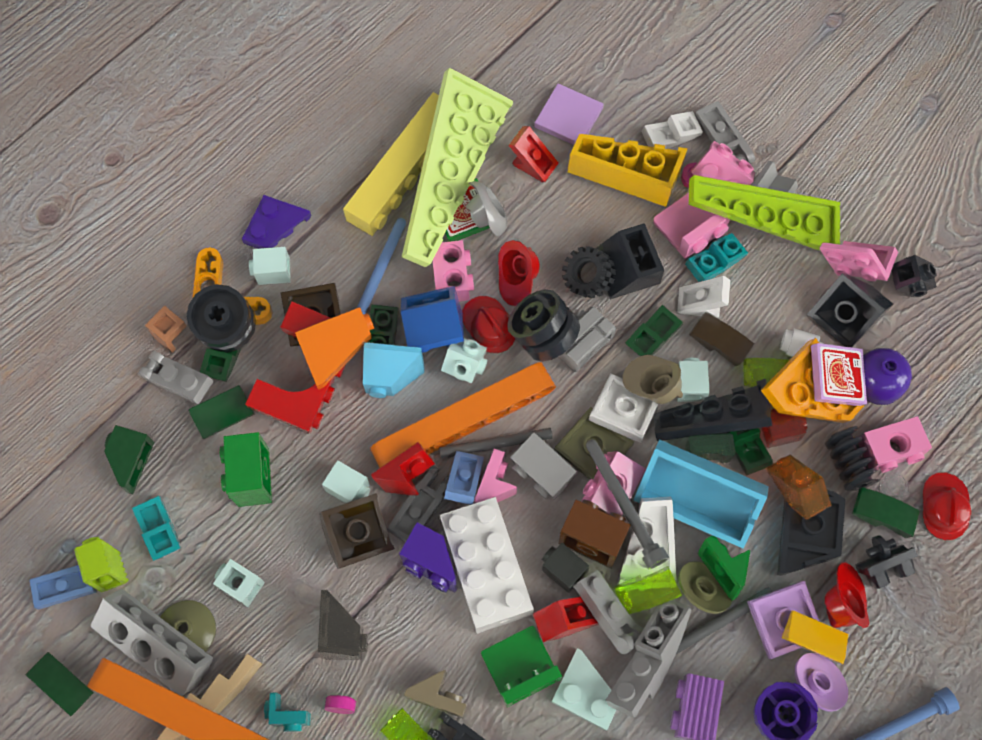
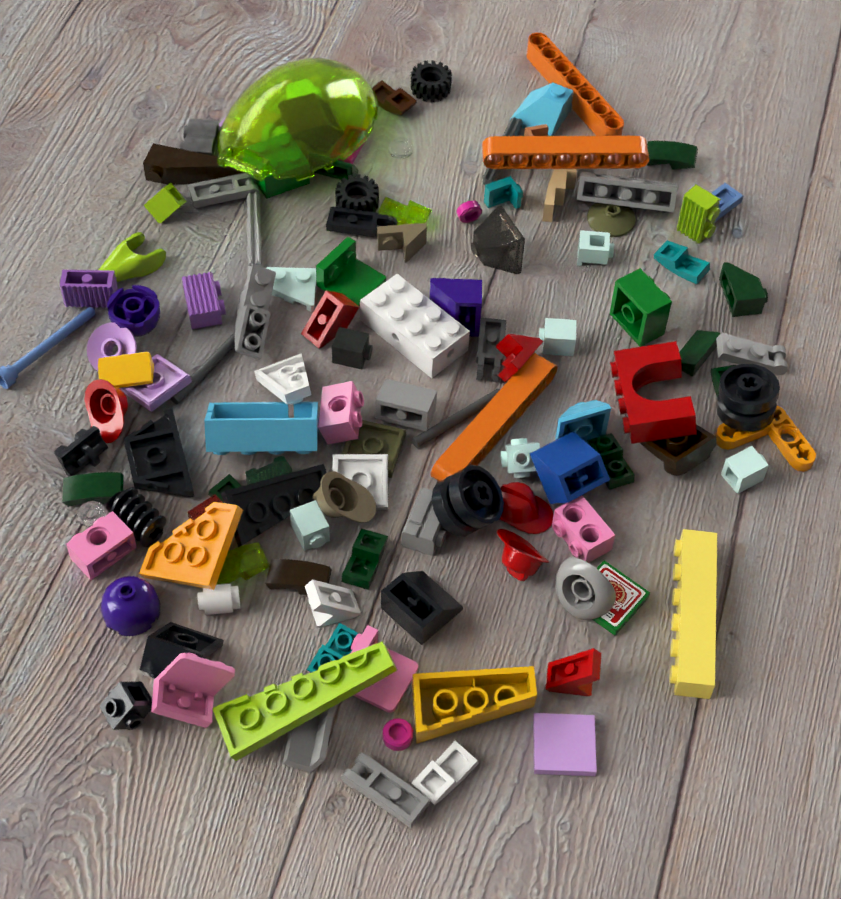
camera: 150 degrees right, 15 degrees down
(166, 327) = (790, 380): nougat panel -> none
(273, 222) = (775, 514): dark purple wing -> none
(334, 343) = (637, 396): orange slope -> none
(355, 531) = (529, 304): dark brown slope -> none
(381, 265) = (638, 459): medium blue piece -> none
(457, 145) = (656, 647): yellowish green wing -> none
(464, 478) = (467, 372): medium blue plate -> none
(490, 485) = (439, 378): bright pink slope -> none
(575, 266) = (453, 575): black tyre -> none
(594, 532) = (336, 363): reddish brown brick -> none
(608, 611) = (301, 333): light grey plate -> none
(648, 591) = (274, 351): clear neon green slope -> none
(653, 553) = (281, 355): dark grey piece -> none
(702, 588) = (218, 370): olive dish -> none
(722, 165) = (366, 736): bright pink bracket -> none
(727, 571) = (214, 389): green slope -> none
(800, 486) = (179, 464): clear orange slope -> none
(838, 374) = (174, 567): tile -> none
(946, 506) = (38, 522): red piece -> none

